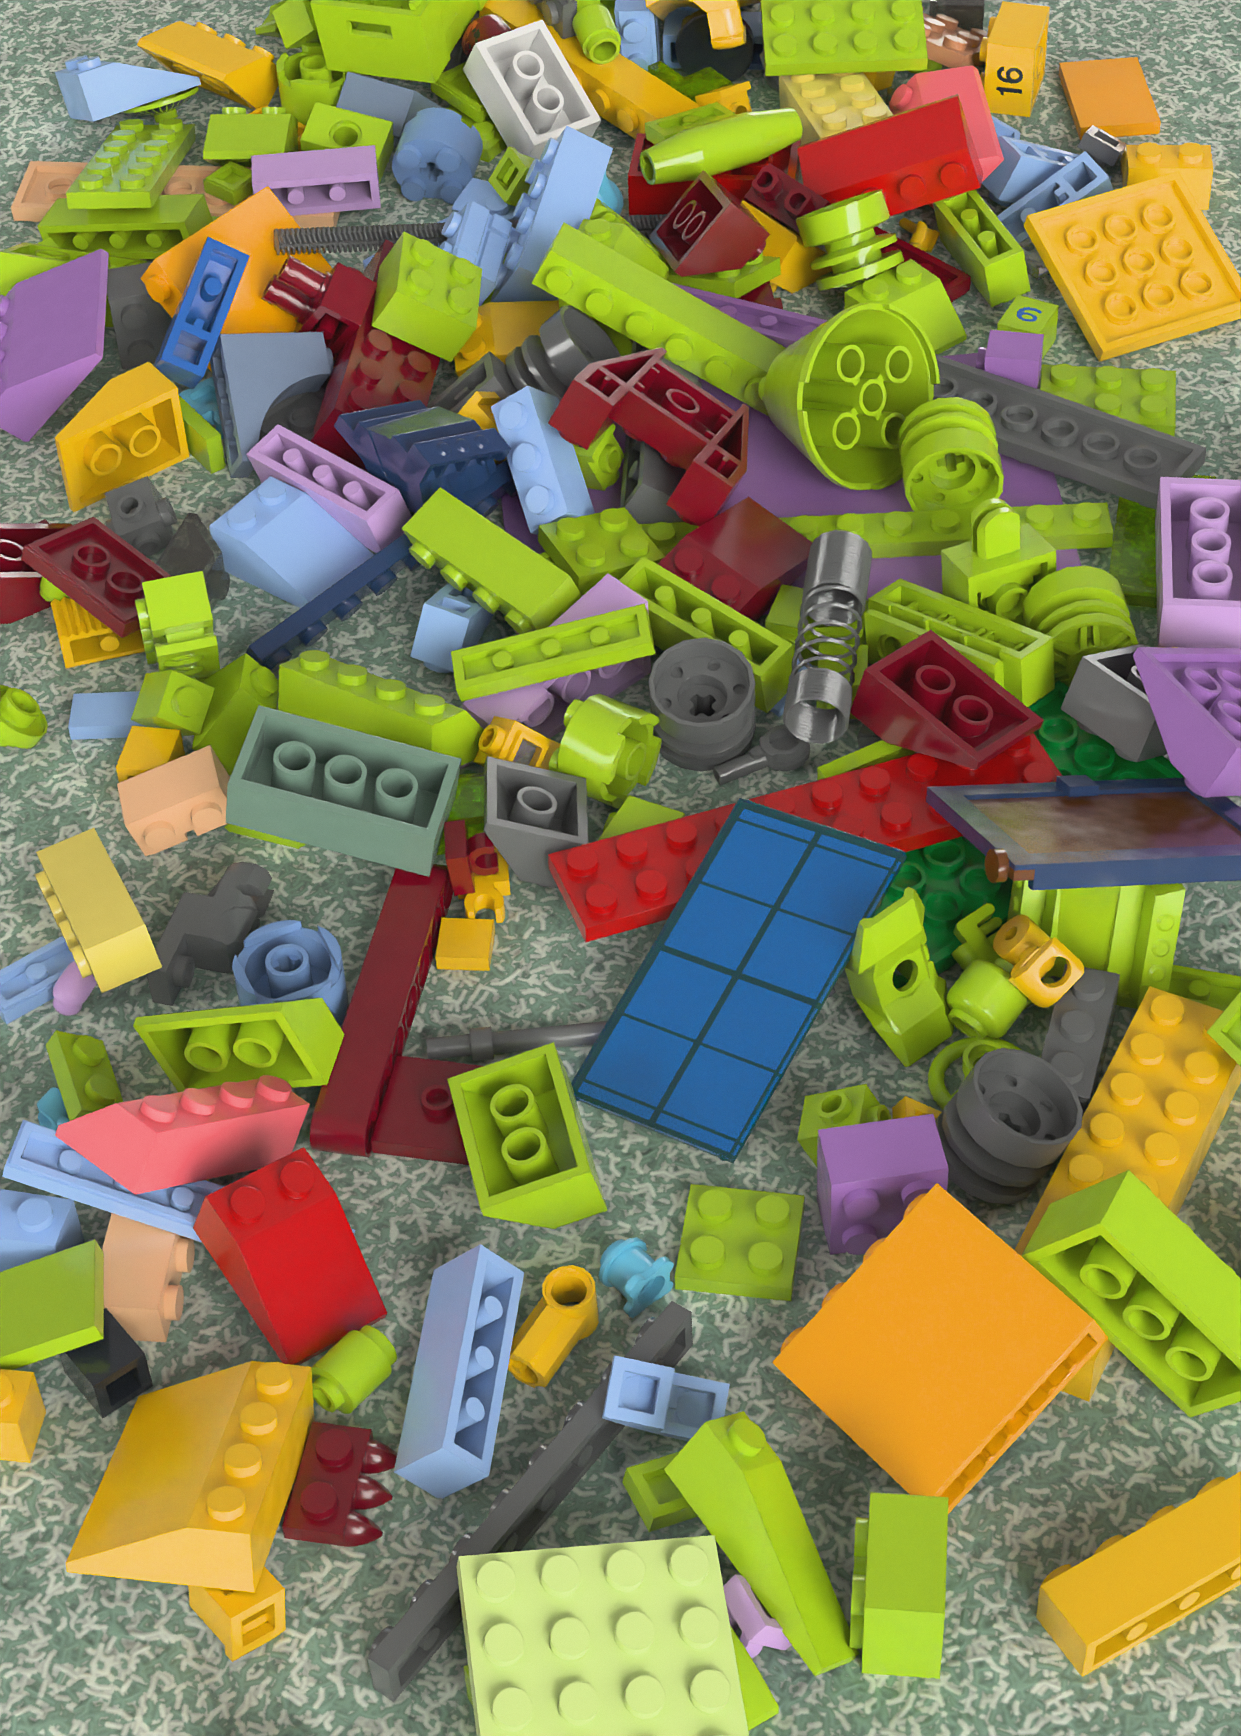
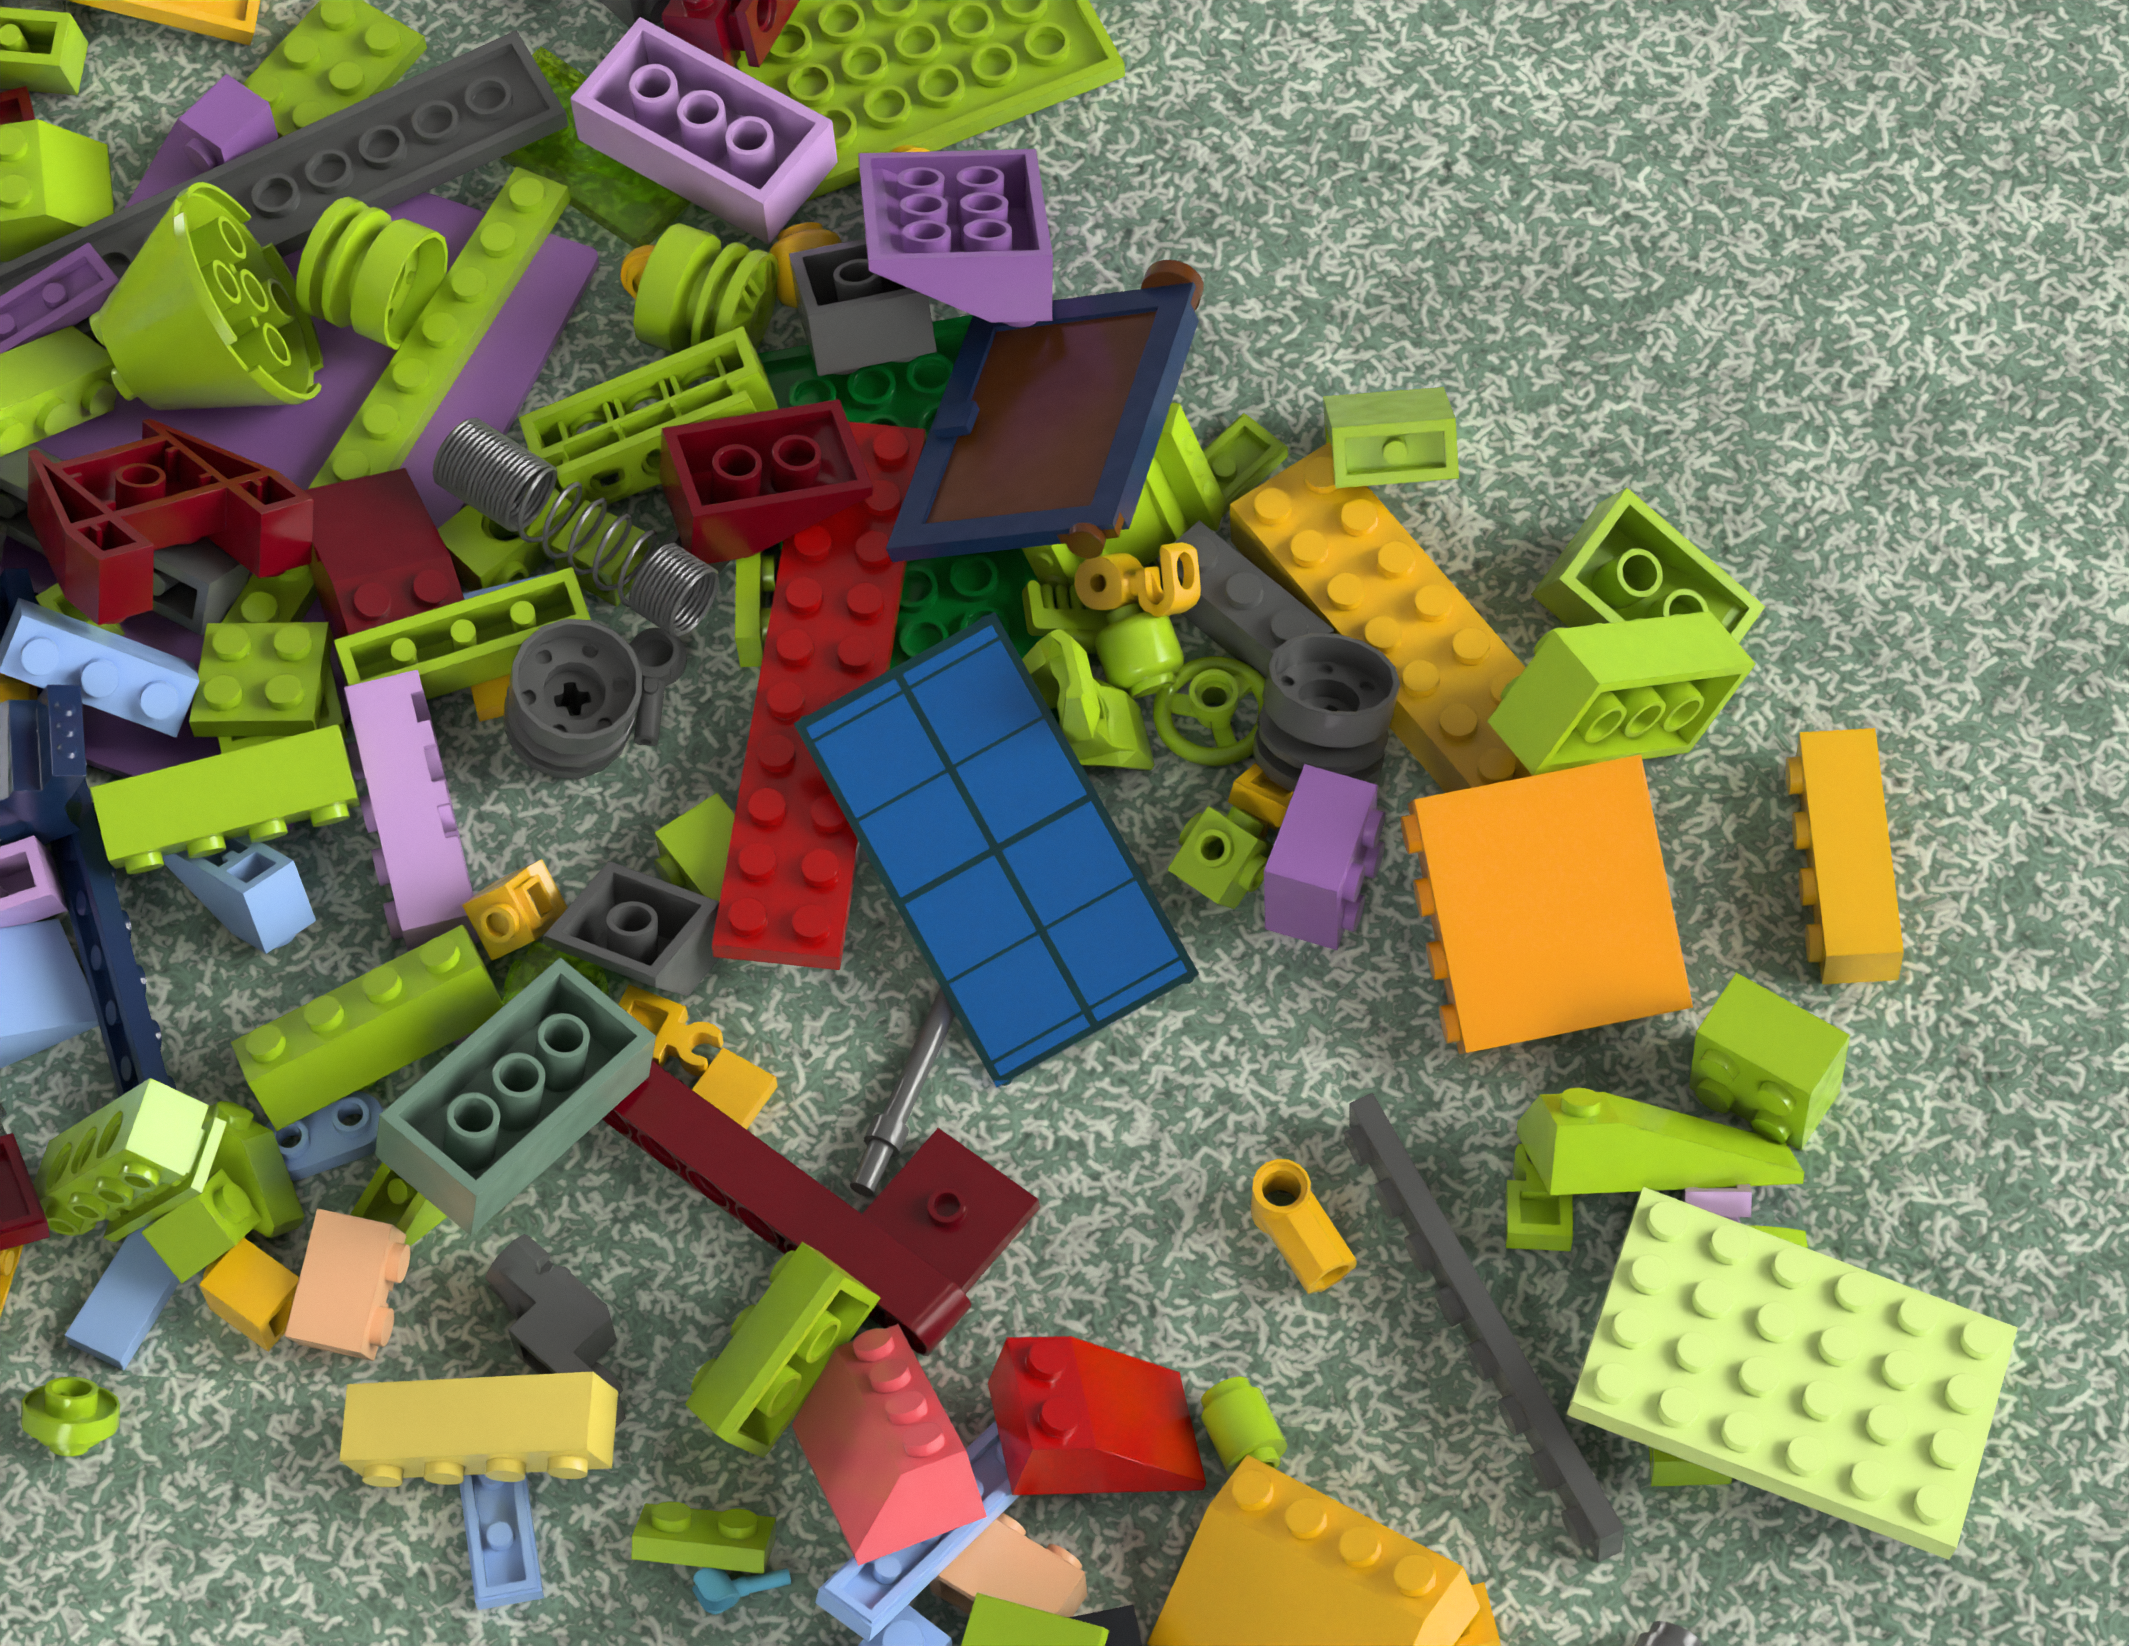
camera: 60 degrees left, 15 degrees up
(72, 990) = (551, 1503): lavender arm -> none
(291, 964) = (670, 1269): medium blue brick -> none
(334, 1485) = (1369, 1491): dark red plate -> none
(460, 1373) = (1312, 1328): light blue brick -> none
(467, 856) = (656, 1015): dark red tile -> none
(527, 1141) = (1066, 1139): lime slope -> none
(552, 652) = (426, 800): lime plate -> none
(608, 747) = (572, 821): lime brick -> none
(635, 1274) = (1275, 1126): medium azure brick -> none
(660, 1400) = (1456, 1162): light blue slope -> none
(740, 1242) = (1282, 1018): lime plate -> none
(997, 563) = (585, 322): lime brick -> none
(1031, 316) = (161, 81): lime brick -> none

